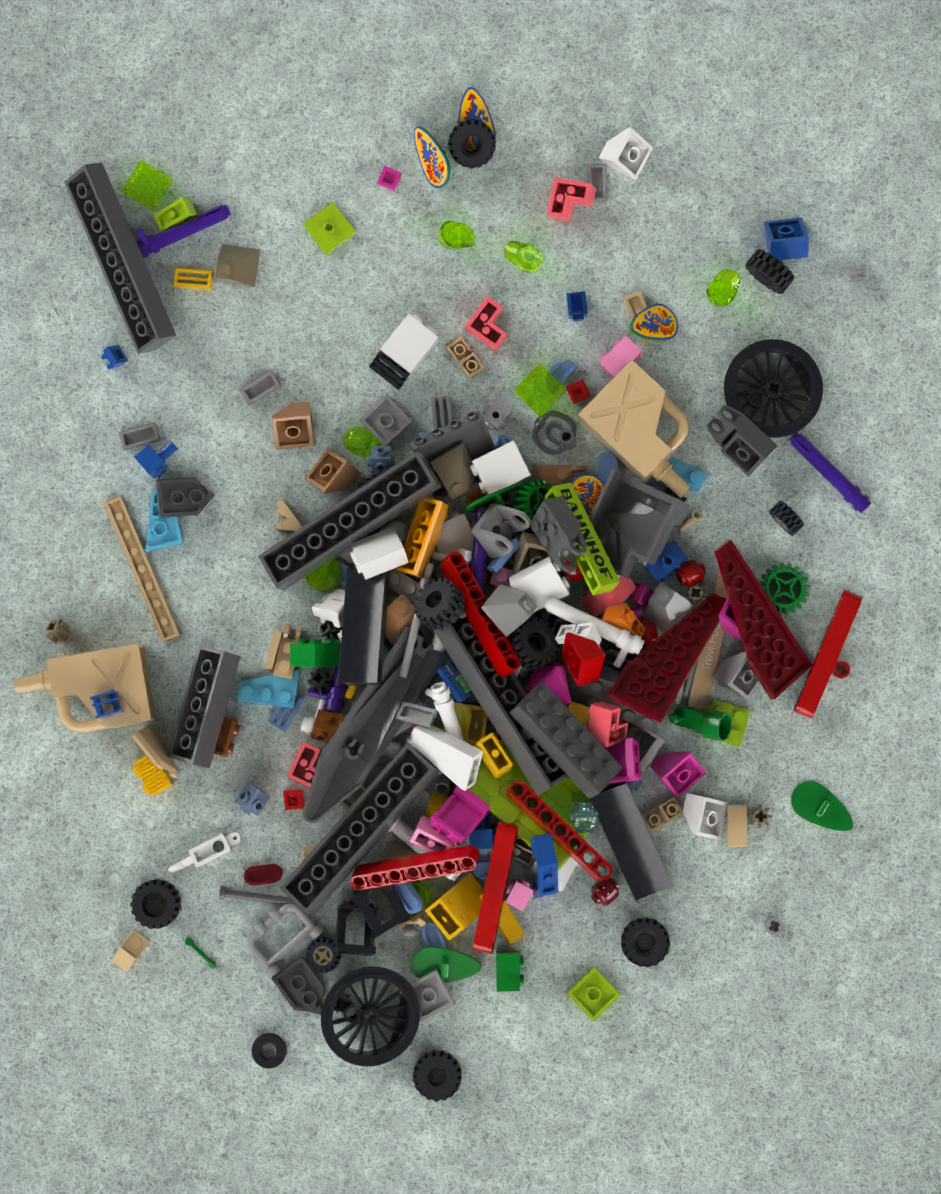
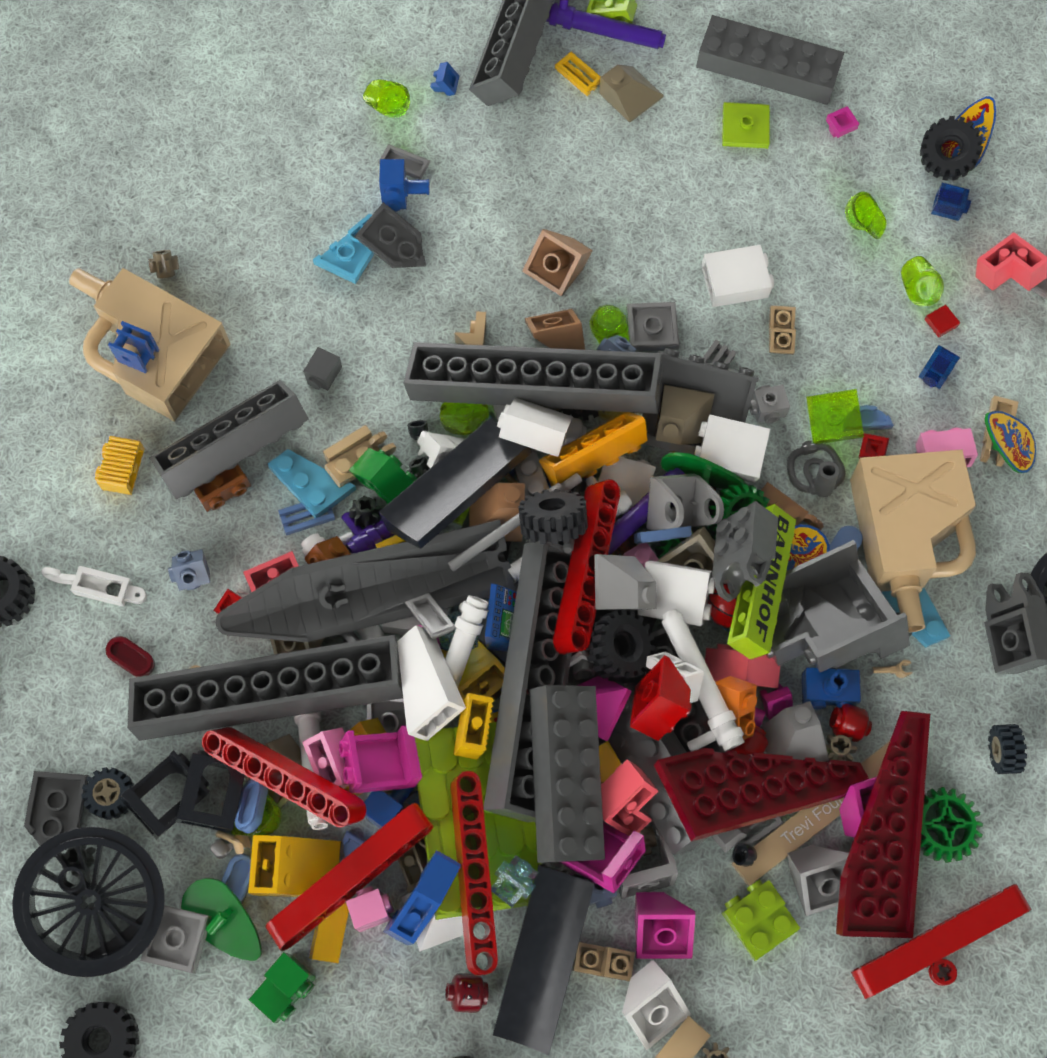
camera: 35 degrees right, 15 degrees down
(91, 403) = (387, 98): none -> clear neon green piece
(142, 569) = (294, 278): tan tile -> none
(155, 750) = (142, 439): tan tile -> none
(215, 616) = (322, 369): none -> dark grey brick
(253, 896) = (74, 640): dark grey bar -> none
(260, 387) = (556, 206): light grey tile -> none
(275, 915) = (76, 710): light grey bar -> none
(300, 604) = (416, 427): none -> black hinge
(307, 169) = (769, 59): none -> dark grey brick
(387, 372) = (690, 267): black tile -> none
(432, 158) = (899, 134): shield -> none
(482, 325) = (827, 312): coral brick -> none
(499, 180) = (951, 202): none -> clear blue brick
(554, 269) = (942, 321): none -> red tile
(690, 697) = (742, 858): none -> black hinge
(711, 724) = (745, 901): green piece -> none

